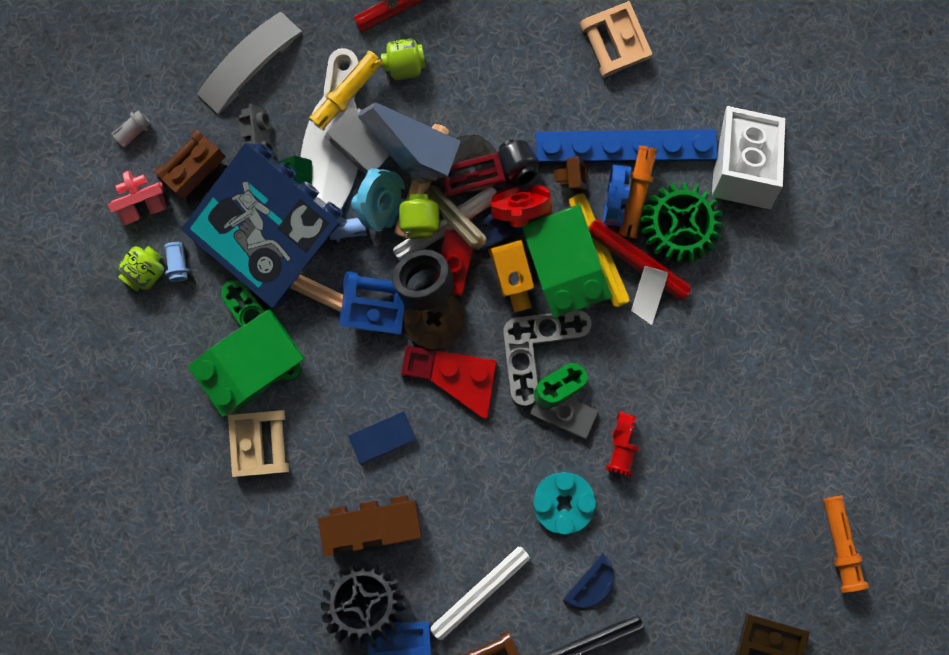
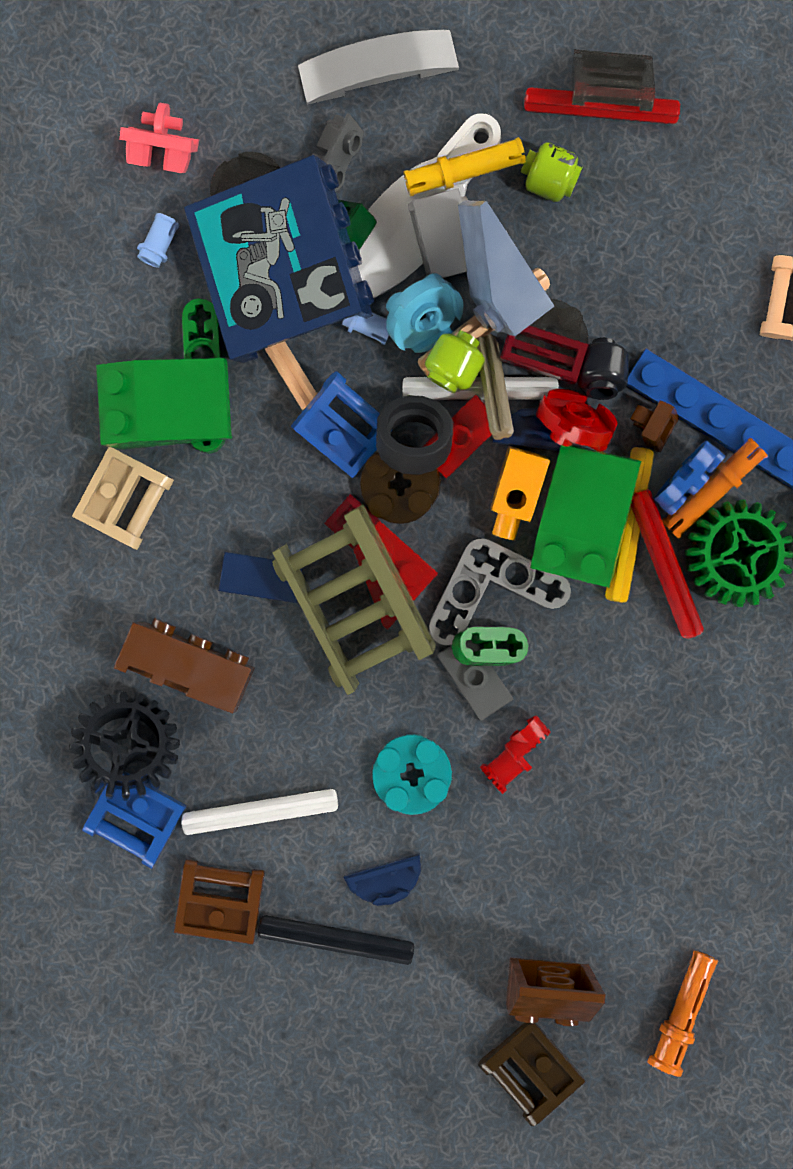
camera: 30 degrees right, 5 degrees up
(131, 128) = (201, 58): light grey pin -> none
(140, 268) = (114, 222): lime head -> none
(190, 164) = (240, 141): reddish brown plate -> none
(453, 381) = (376, 566): none -> olive fence
(649, 293) = (653, 608): white sticker -> none
(749, 585) = (553, 991): none -> reddish brown slope

